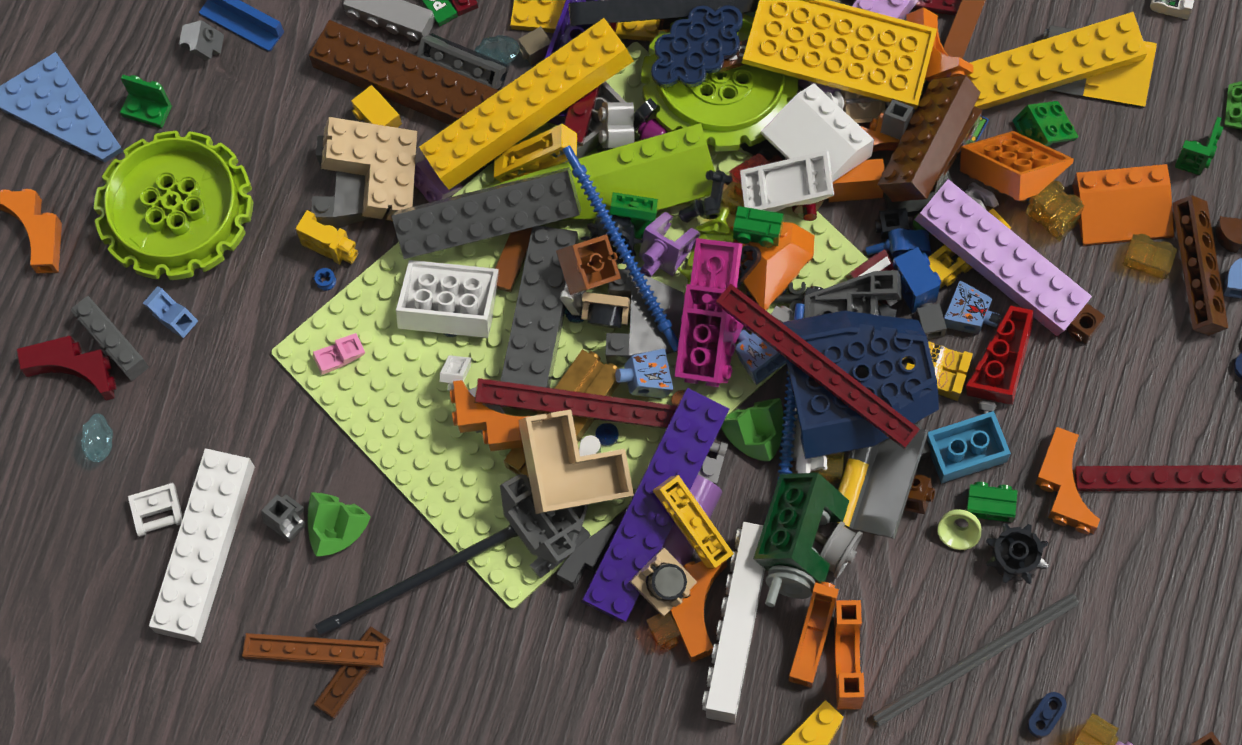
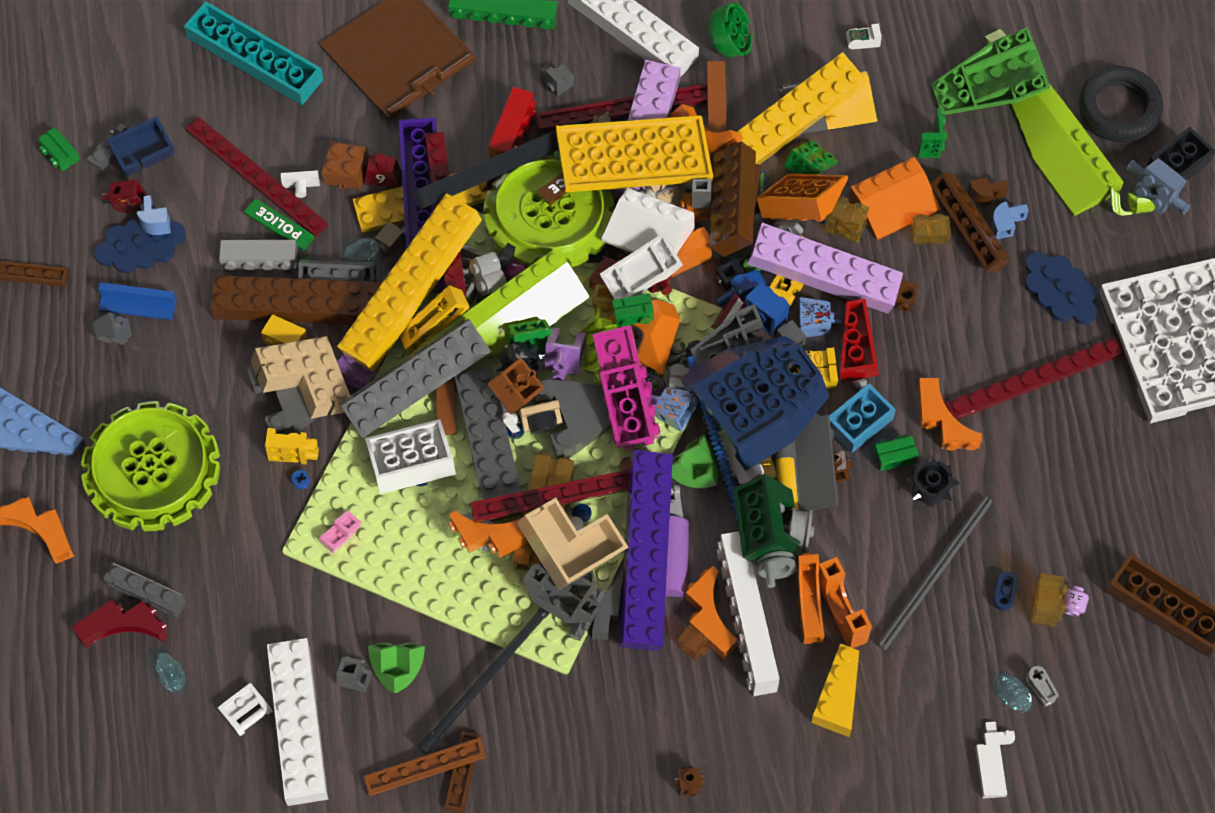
camera: 30 degrees left, 5 degrees down
(145, 101) = (88, 393): green bracket -> none
(169, 312) = (187, 552): medium blue brick -> none
(455, 369) = (442, 508): white tile -> none
(580, 171) = (480, 316): blue hose -> none
(647, 374) = (595, 455): medium blue torso -> none
(664, 581) = (682, 602): piece -> none
(693, 521) = (684, 548): yellow brick -> none
(697, 46) = (525, 191): dark blue plate -> none
(711, 205) = (586, 310): black pin -> none
(817, 366) = (728, 395): dark red plate -> none
(959, 537) = (885, 487): yellowish green piece -> none

